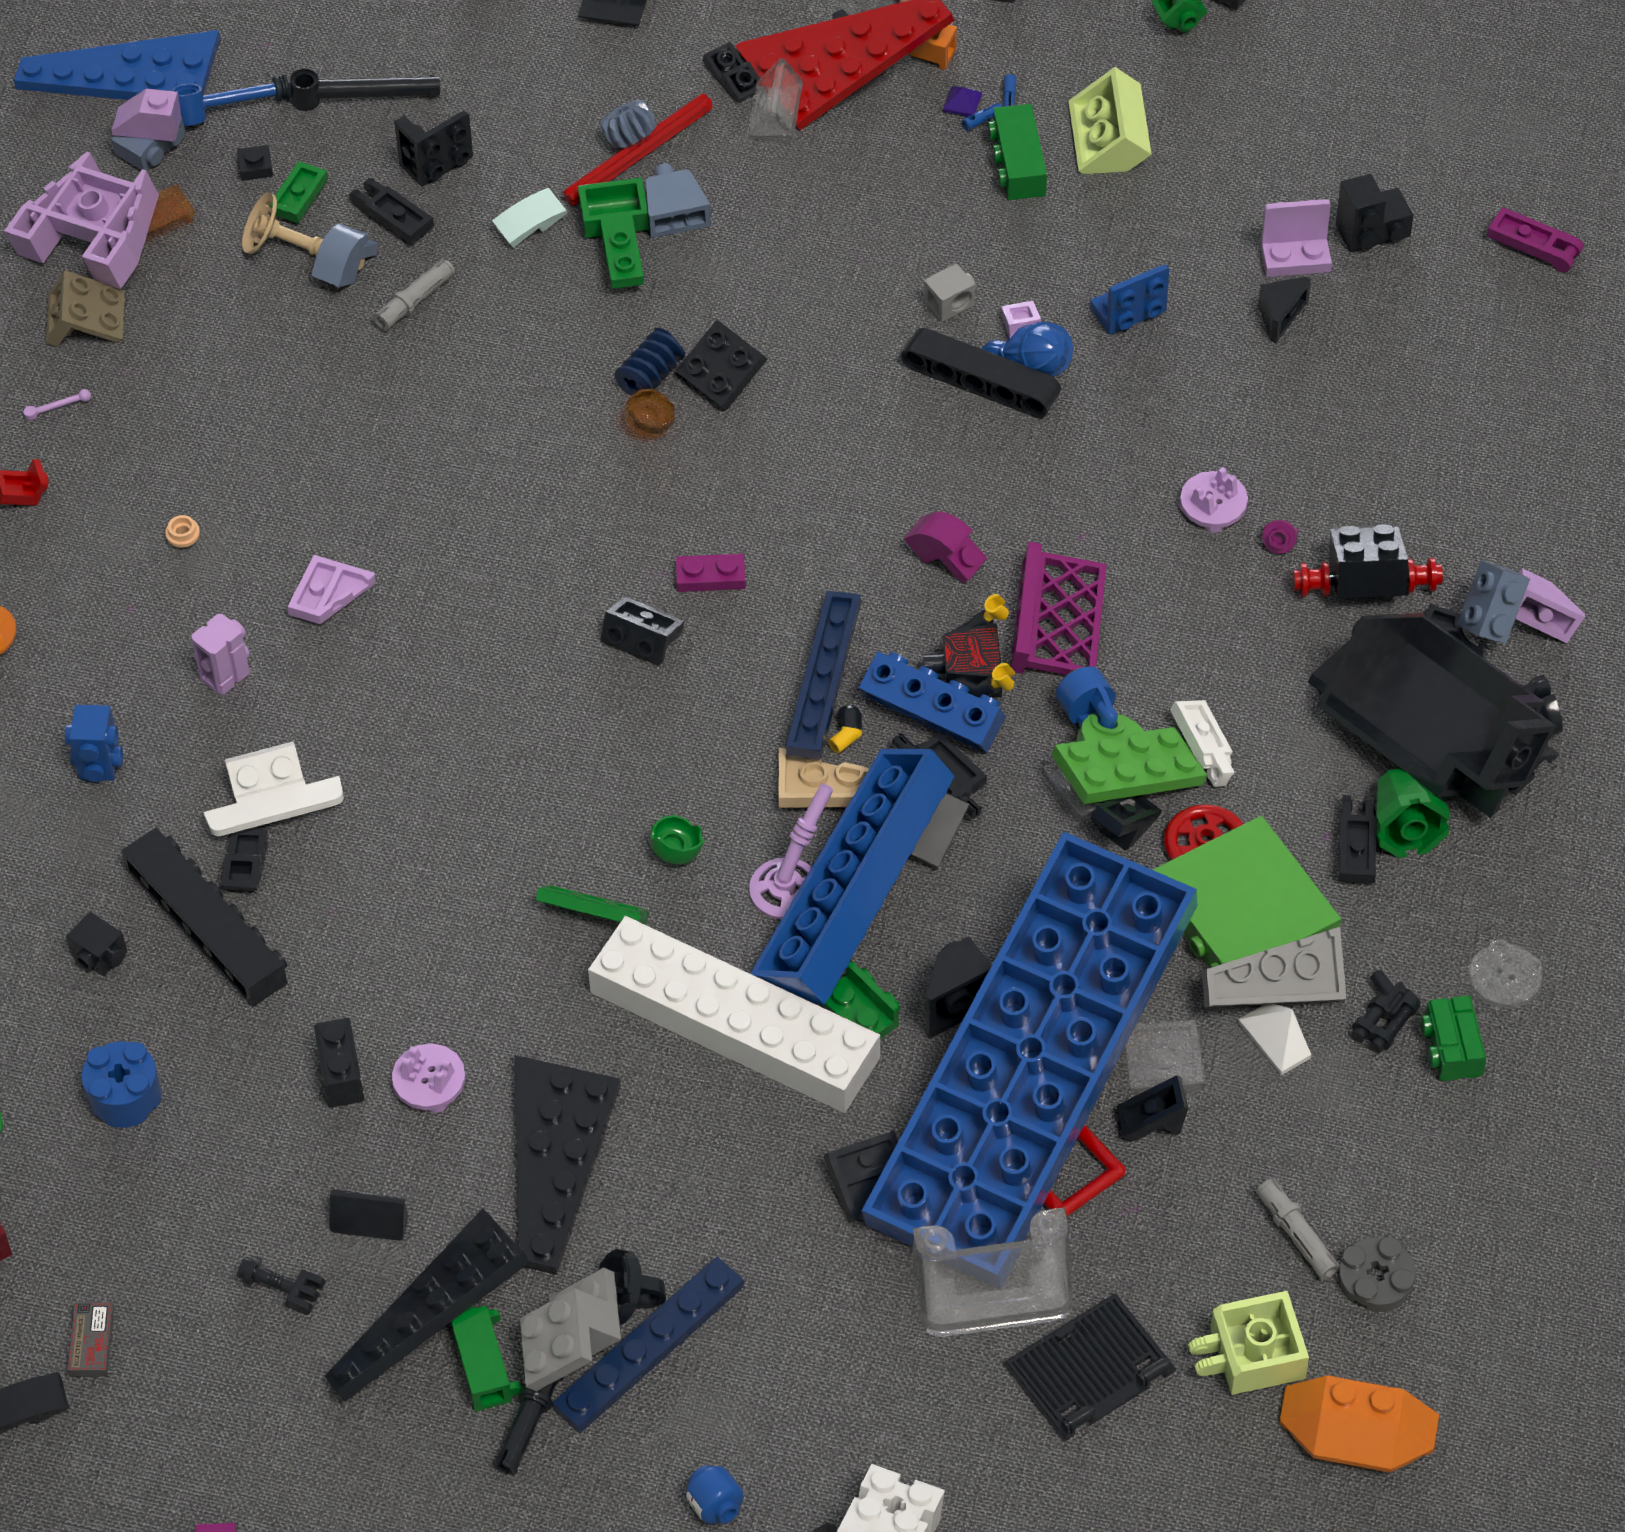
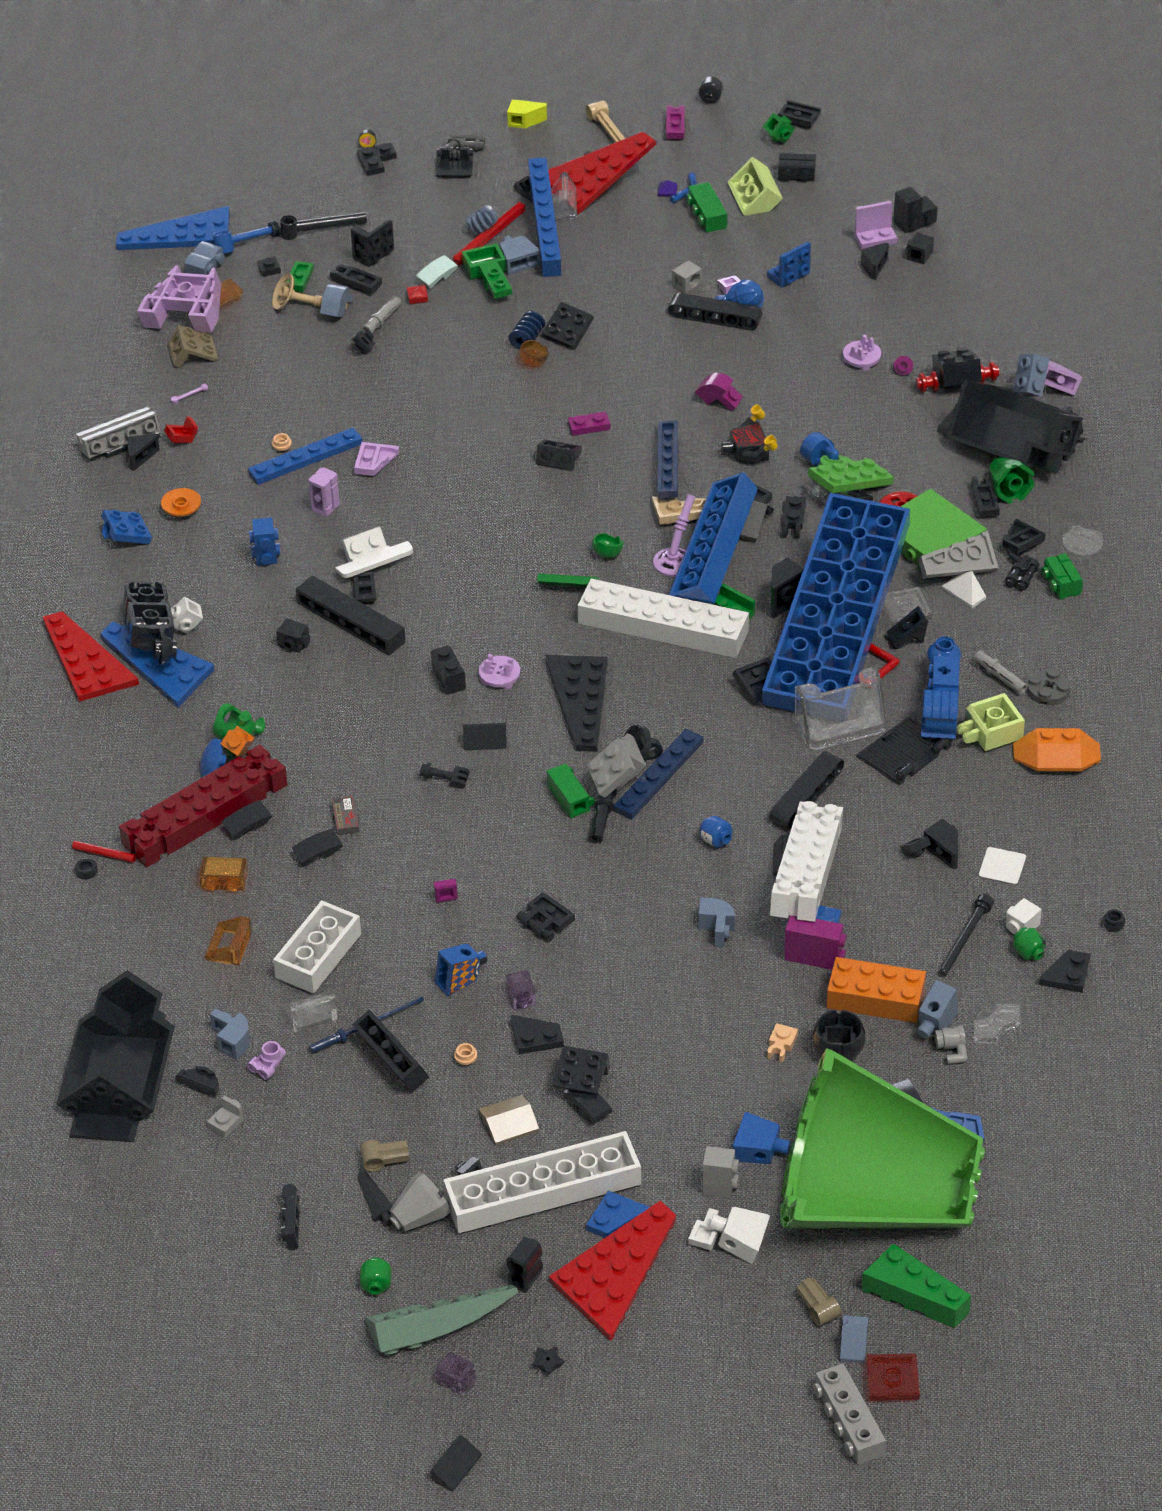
camera: 10 degrees left, 10 degrees down
(121, 1083) = (327, 695): blue brick -> none
(149, 116) = (205, 245): lavender slope -> none
(216, 564) = (305, 456): none -> blue plate
(369, 344) = (363, 341): none -> black gear
(453, 1282) = (540, 759): black wing -> none
(486, 257) = (417, 294): none -> red tile
(734, 137) = (544, 217): none -> blue brick
(851, 728) = (689, 484): arm -> none
(896, 1427) = (807, 788): none -> black beam
(932, 701) = (728, 461): blue brick -> none
(939, 47) = (646, 164): orange brick -> none
(1015, 825) = (793, 515): none -> black hinge
(1029, 615) = (775, 415): magenta fence -> none
(1172, 1288) = (941, 695): none -> blue brick
(1192, 90) = (797, 167): none -> black brick
(1204, 739) = (889, 461): white hinge -> none
(1365, 292) = (920, 248): none -> black brick
(1402, 941) = (1022, 537): none -> black wing
(1535, 239) = (1007, 213): magenta plate -> none

